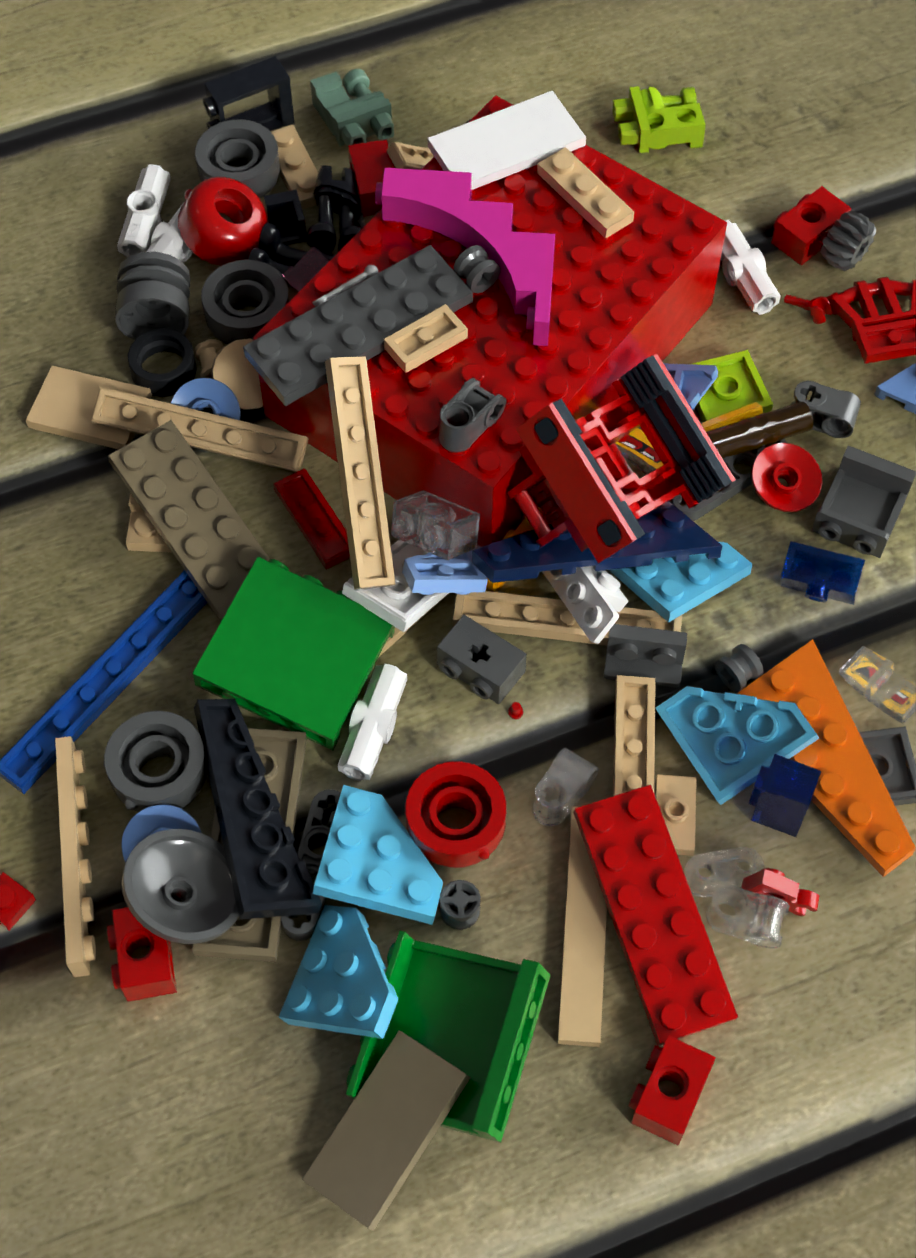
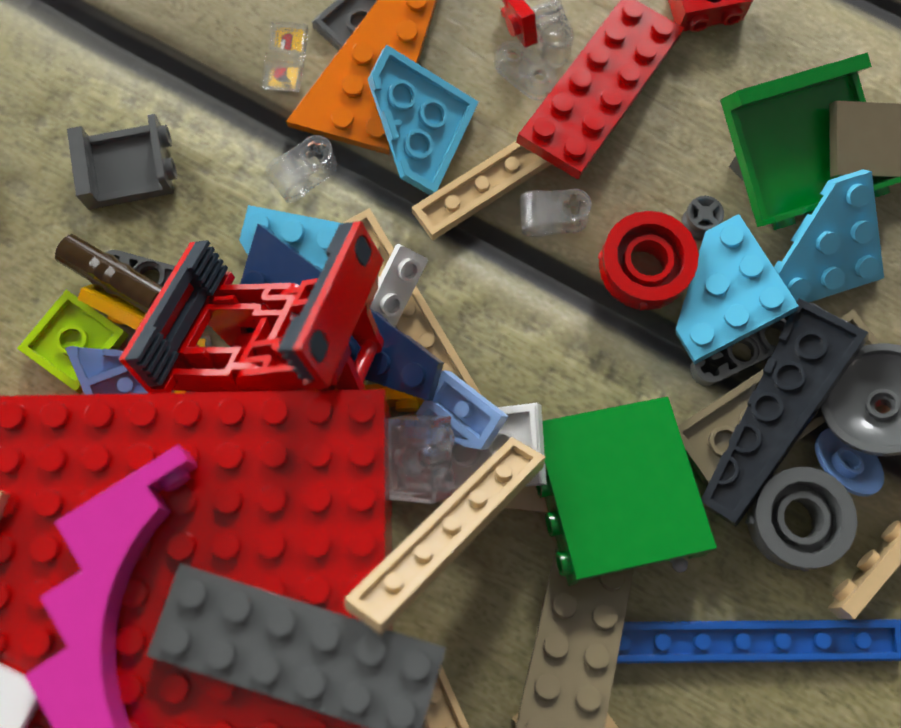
camera: 130 degrees left, 15 degrees up
(314, 517) = (467, 596): red tile -> none
(369, 271) = (296, 714): light grey hinge -> none
(372, 722) = (619, 386): white piece -> none
(425, 338) = (271, 565): tan plate -> none
(468, 416) = (323, 453): dark grey piece -> none
(477, 269) = (148, 580): dark grey wheel -> none
(481, 659) = (495, 325): dark grey brick -> none
(515, 711) = (513, 298): red piece -> none
(582, 949) = (649, 127): tan tile -> none
(645, 654) = (399, 221): dark grey bracket -> none
(678, 806) = (502, 127): tan plate -> none
(739, 667) = (353, 156): dark grey wheel -> none
(757, 622) = (300, 169): none -> clear piece
(783, 794) = (445, 46): clear blue brick -> none
(794, 466) = (136, 220): red dish -> none
(822, 573) = (222, 142): clear blue brick -> none
(831, 409) = (37, 245): dark grey piece -> none

